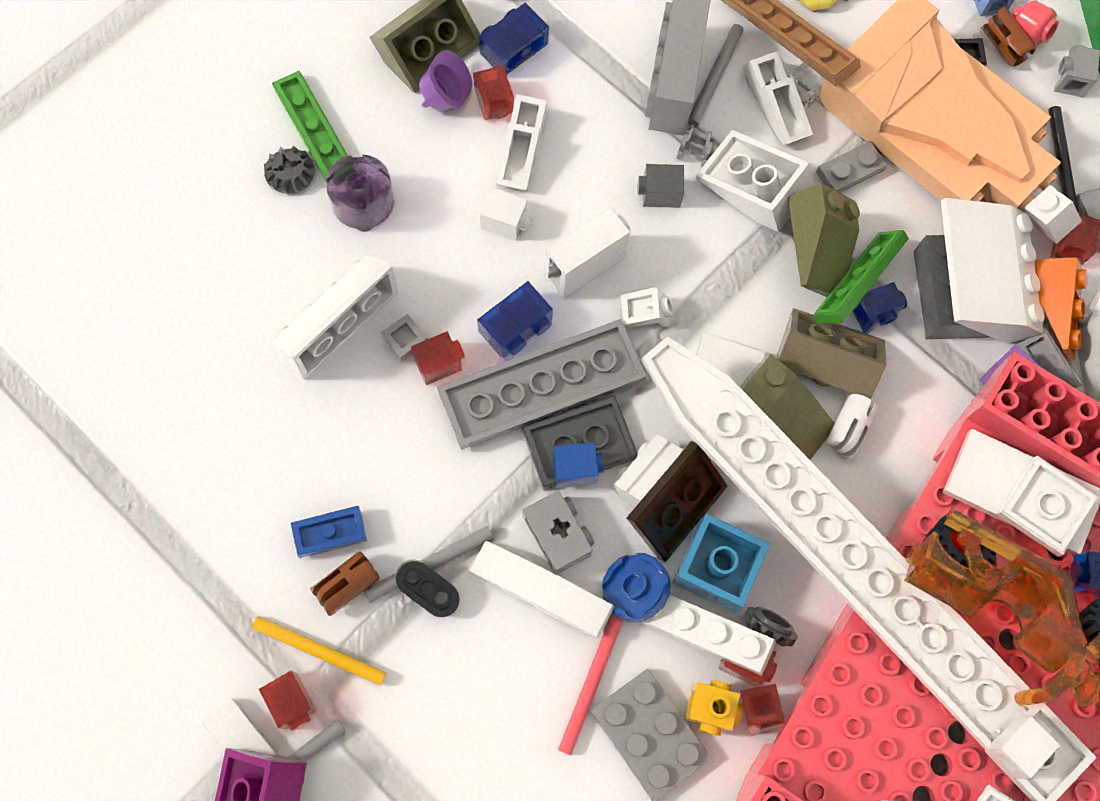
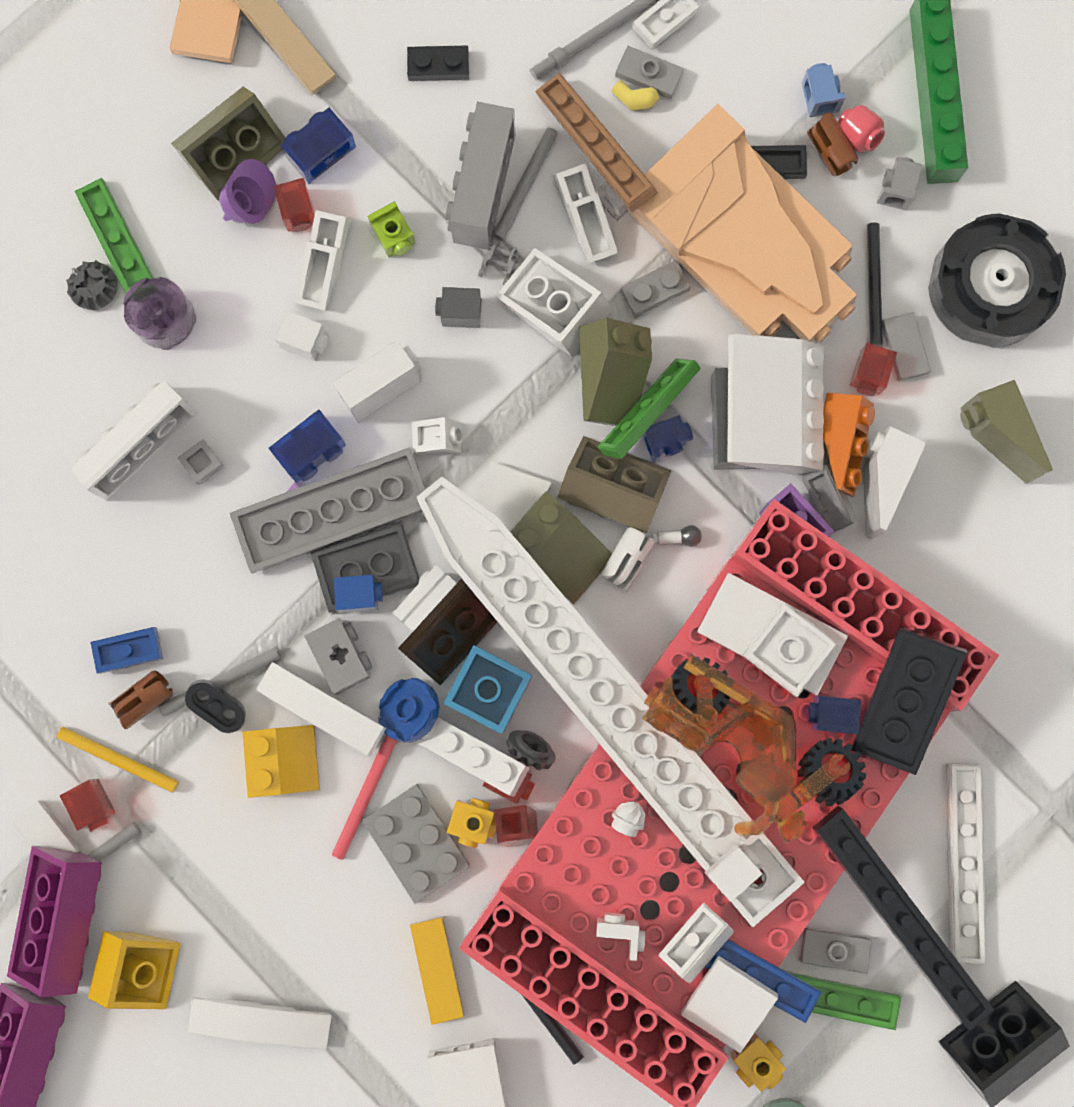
camera: 10 degrees right, 10 degrees up
(438, 357) = (231, 483): clear red brick -> none
(500, 646) = (280, 761): none -> yellow slope
(589, 115) = (385, 220): none -> lime brick
(896, 691) = (628, 818): none -> white plate
(910, 403) = (688, 536): none -> piece
(1053, 214) = (845, 347): white brick -> none

